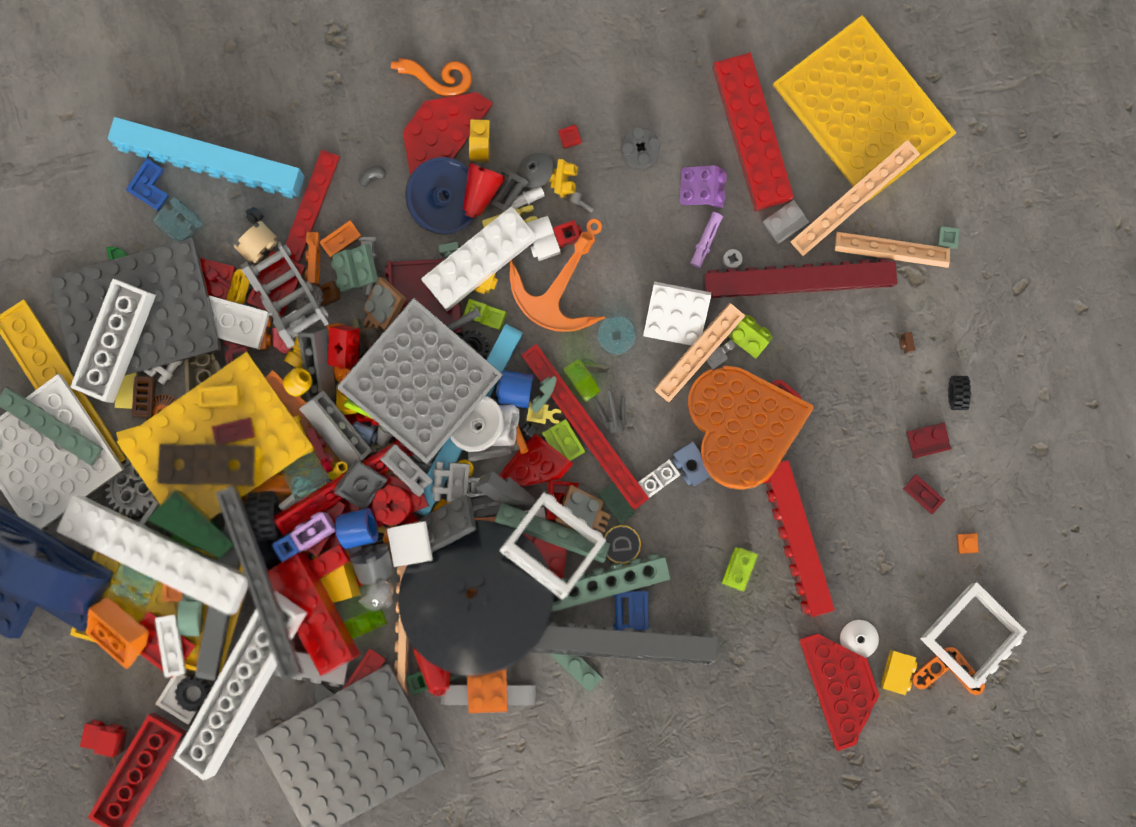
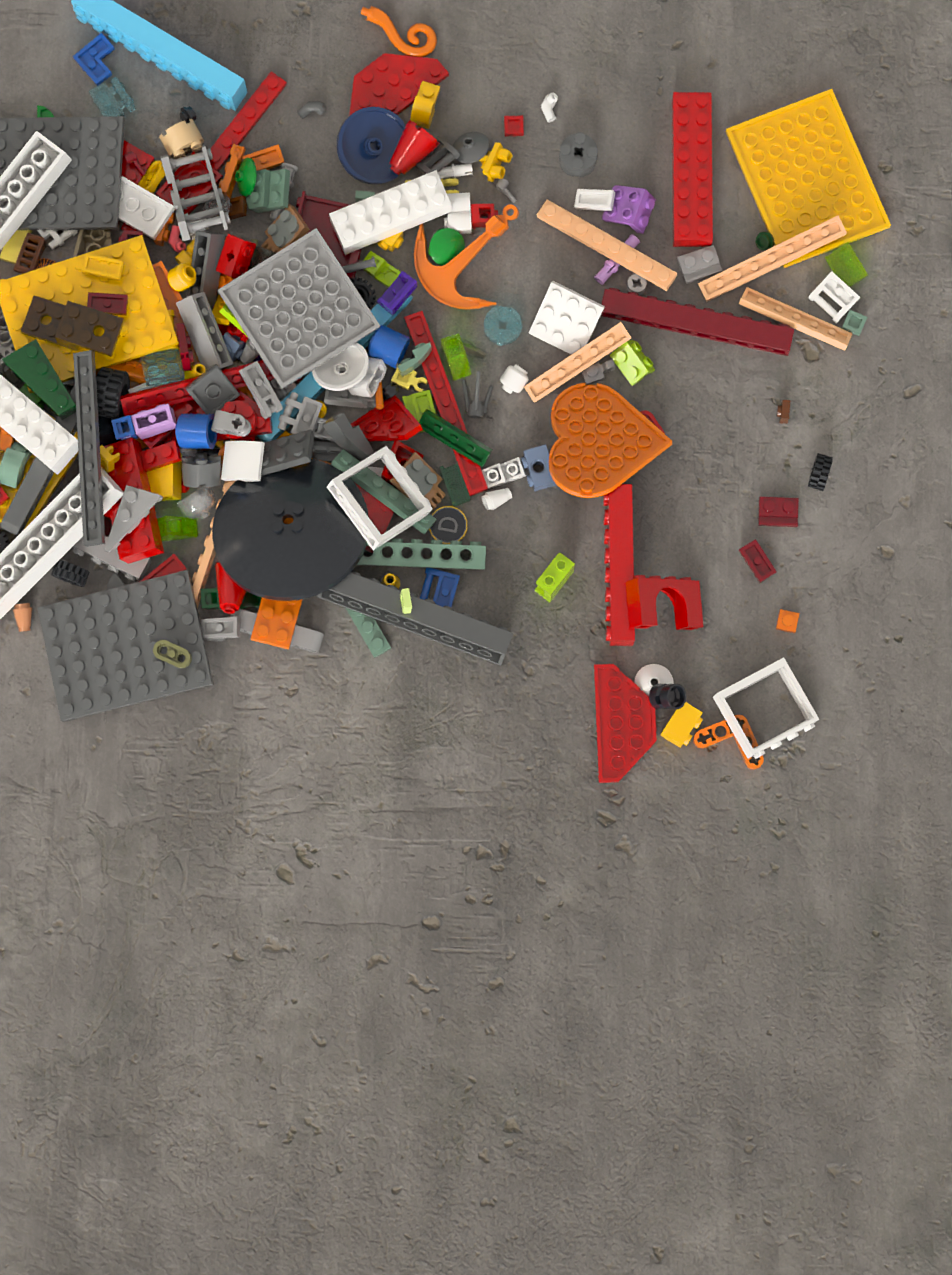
camera: 20 degrees right, 5 degrees down
(243, 750) = (23, 616): none -> nougat cone
(276, 698) = (70, 573): none -> black tyre
(279, 584) = (107, 459): none -> yellow tile
(319, 624) = (132, 509): none -> light grey wing
(329, 261) = (246, 177): none -> green dish
(386, 513) = (228, 424): none -> light grey piece
(399, 752) = (173, 654): none -> olive plate
(436, 710) = (220, 628): none -> light grey plate
(508, 335) = (397, 293): none -> dark purple hinge
(540, 274) = (445, 245): none -> green dish
(581, 610) = (396, 582): none -> yellow cone
(596, 108) = (547, 106): none -> white arm
(604, 460) = (455, 438): none -> dark green plate
(608, 640) = (405, 601): none -> yellowish green tile
(643, 385) = (514, 379): none -> white head
(659, 505) = (496, 498): none -> white cone
(668, 188) = (594, 199): none -> white tile
(693, 229) = (607, 245): none -> light nougat plate
(831, 563) = (683, 593): none -> red arch
(841, 182) = (764, 240): none -> dark green plate
(879, 652) = (667, 696): none -> black wheel
(925, 184) = (846, 265): none -> clear neon green plate
(925, 212) = (837, 291): none -> white plate

